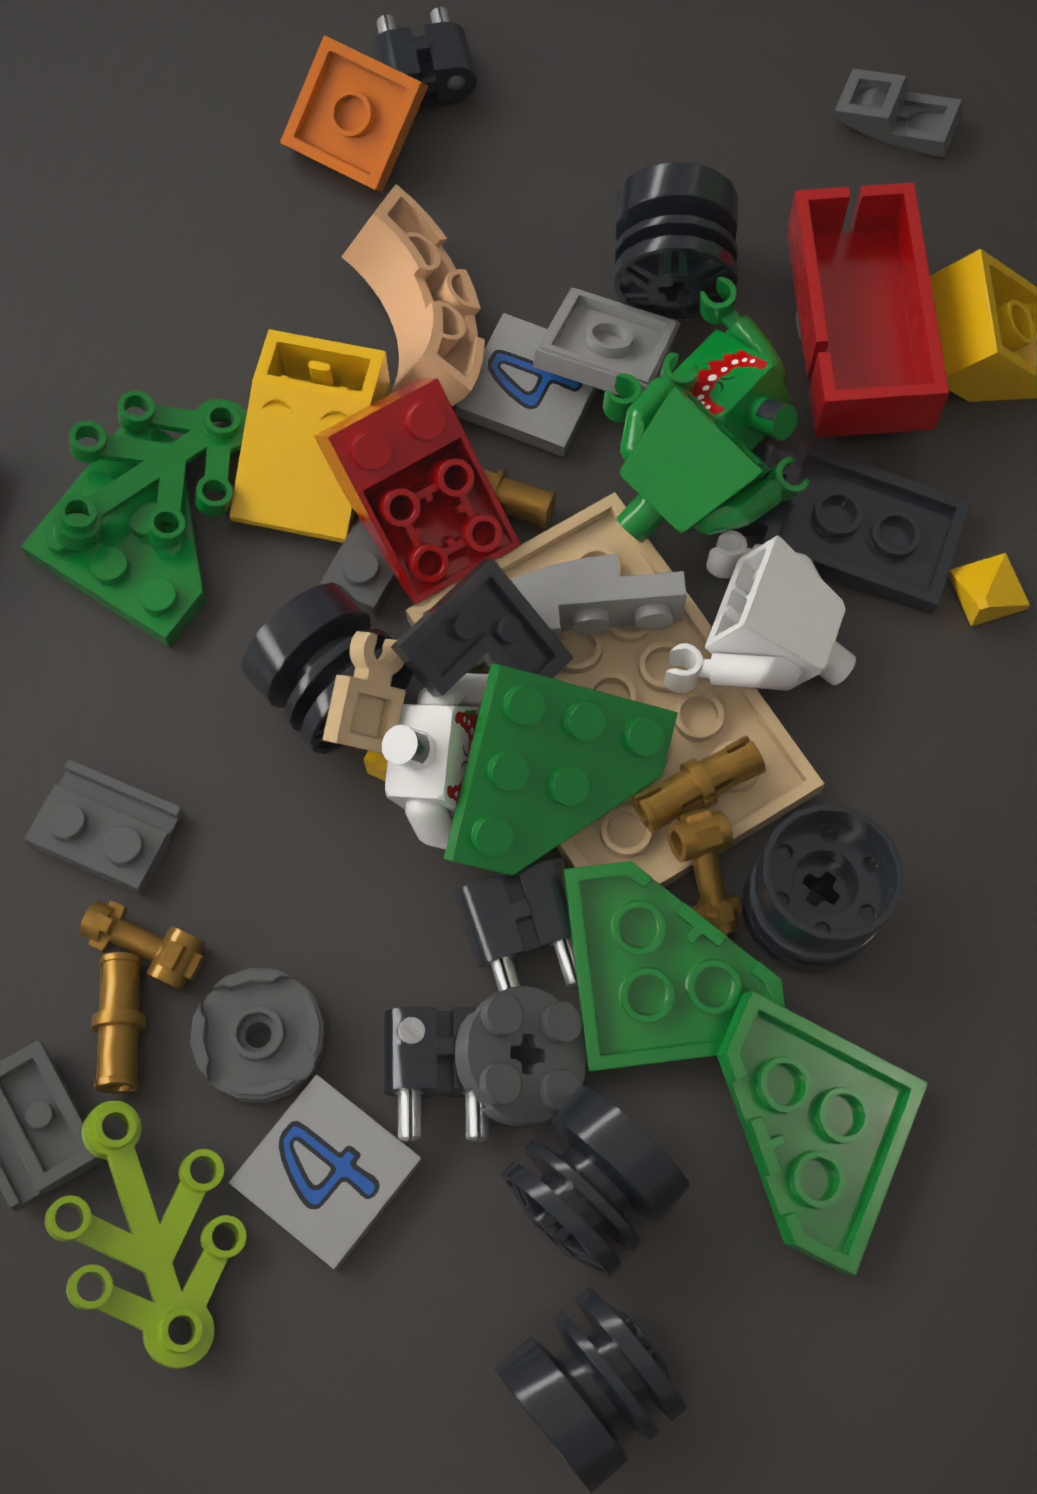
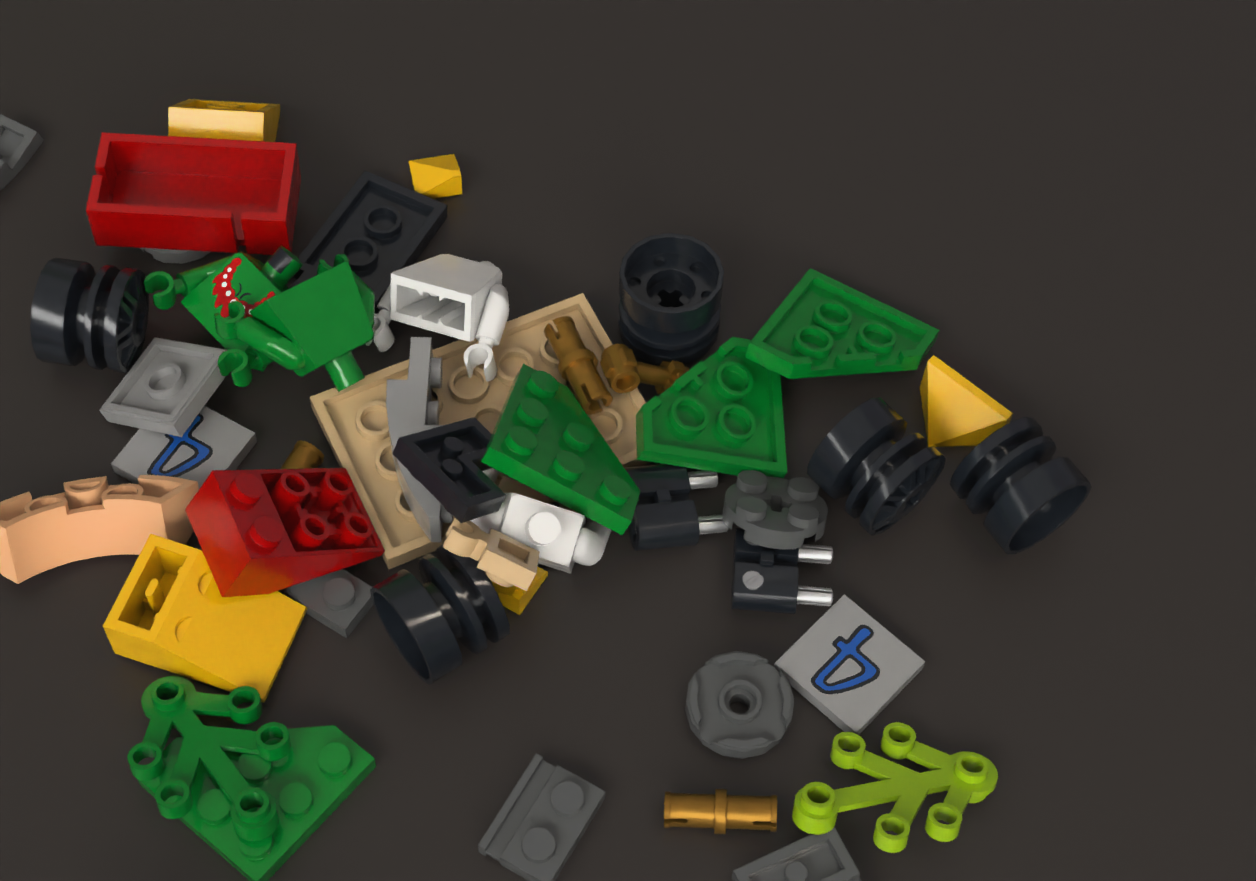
camera: 90 degrees left, 10 degrees down
(172, 957) = (667, 766): pearl gold bar -> none
(721, 1302) = (956, 408): none -> yellow slope

